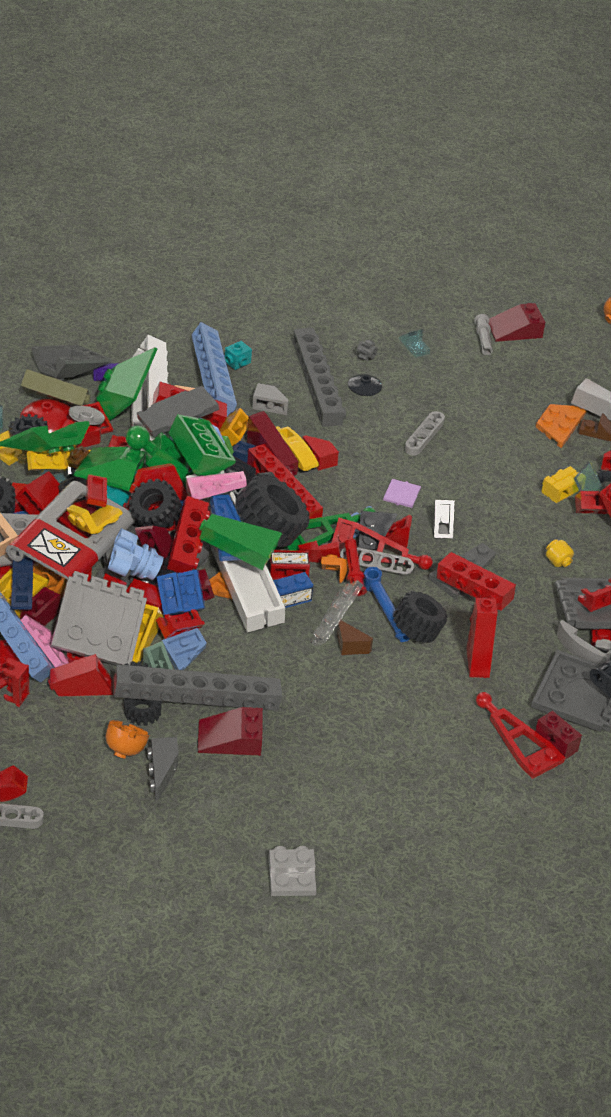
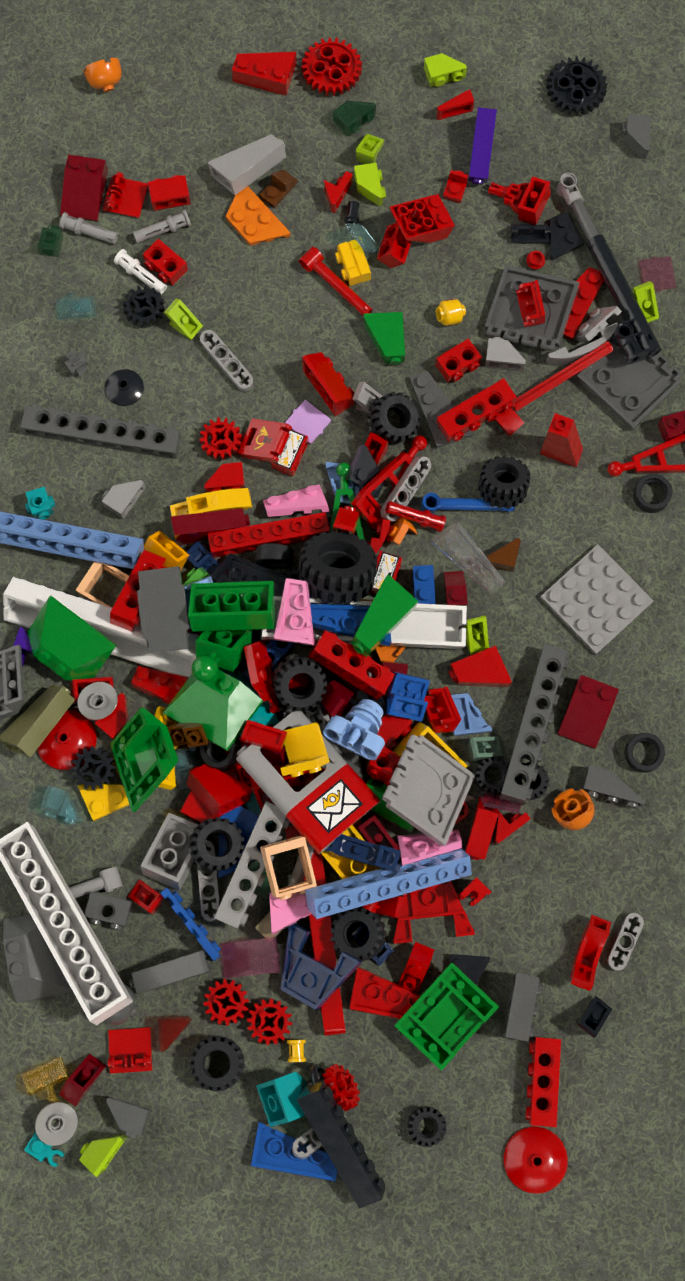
camera: 65 degrees left, 35 degrees up
(90, 699) = (504, 829): none -> red slope
(108, 681) = (494, 802): none -> clear pink piece
(210, 798) = (660, 749): none -> black tyre
(234, 647) = (481, 669): none -> red slope
(266, 635) = (476, 634): none -> lime slope
(299, 614) = (455, 588): none -> dark red slope
(320, 516) = (346, 520): none -> red slope
(324, 495) = (300, 500): none -> bright pink wing
(346, 718) = (596, 599): none -> light grey plate
(353, 441) = (220, 430): none -> red gear
(366, 462) = (264, 439): none -> red container
(366, 483) = (291, 454): none -> brick
(434, 519) = (406, 411): none -> black tyre
(439, 376) = (145, 314): none -> black gear
(443, 396) = (183, 319): none -> lime slope
(443, 483) = (328, 382): none -> red slope
(459, 317) = (51, 246): none -> clear green brick
(469, 364) = (134, 265): none -> white pin
(476, 744) = (648, 507): none -> black tyre
(484, 378) = (168, 260): none -> red brick
(511, 519) = (387, 334): none -> green slope
(517, 568) = (455, 358): none -> red brick
(520, 374) = (171, 224): none -> light grey pin
(526, 348) = (125, 196): none -> red hinge
(542, 595) = (503, 355): none -> light grey slope
(545, 461) = (313, 261): none -> red piece
(546, 368) = (169, 192): none -> red brick
(550, 639) = (563, 375): none -> red axle

